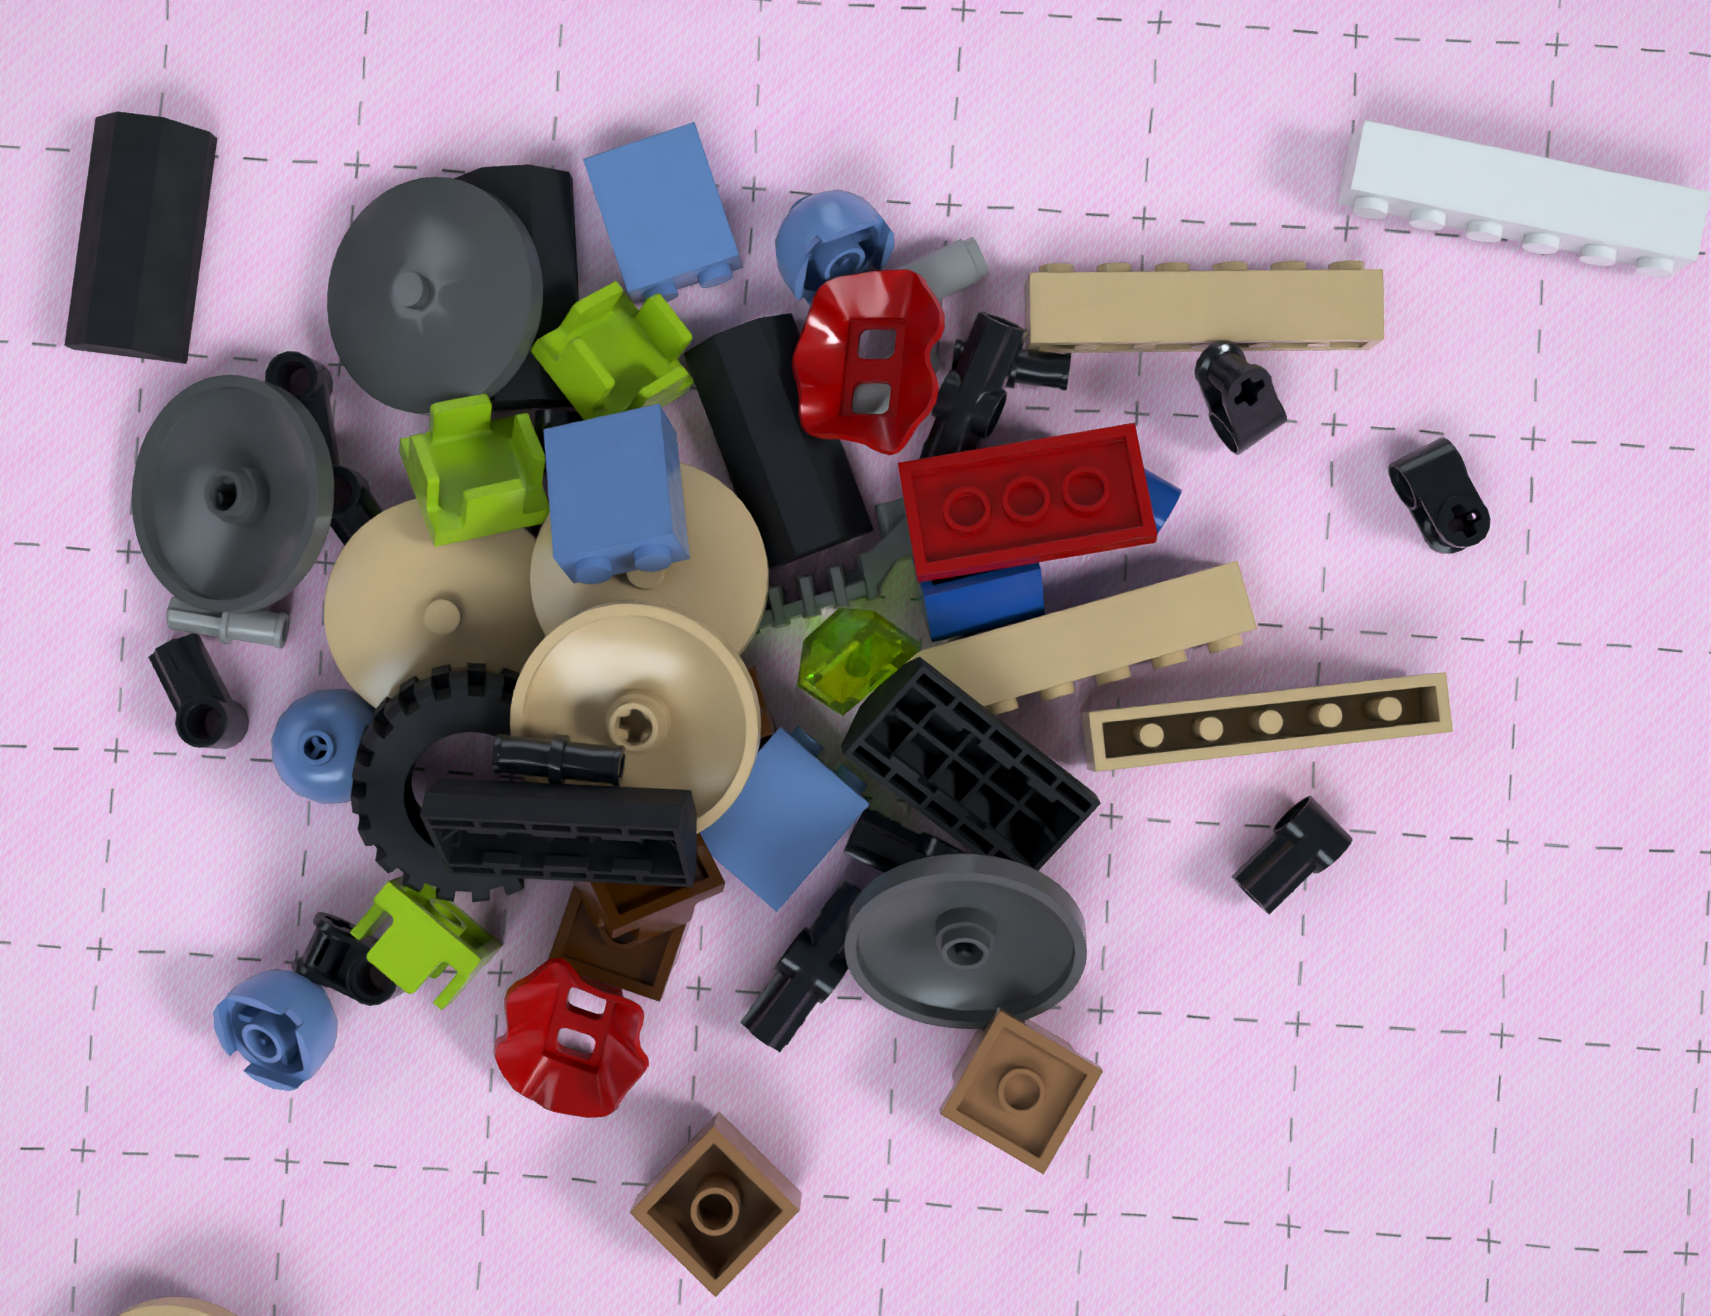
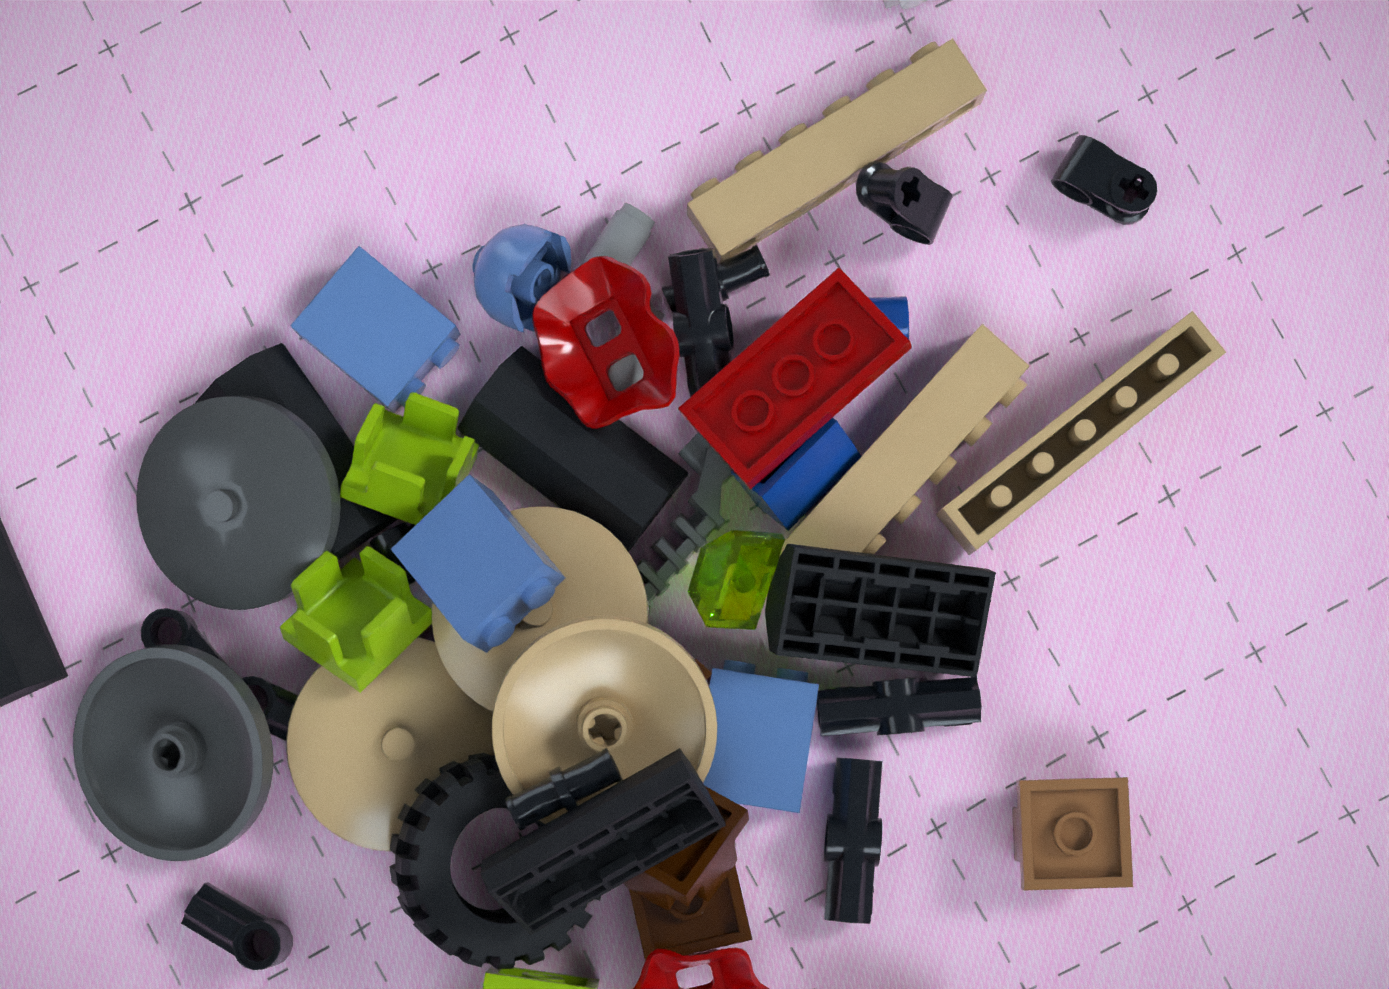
camera: 35 degrees left, 5 degrees down
(253, 626) = (249, 848): light grey axle -> none
(298, 745) = (350, 929): medium blue cylinder -> none
(963, 937) = (956, 739): dark grey dish -> none
(1303, 844) = (1169, 510): black piece -> none

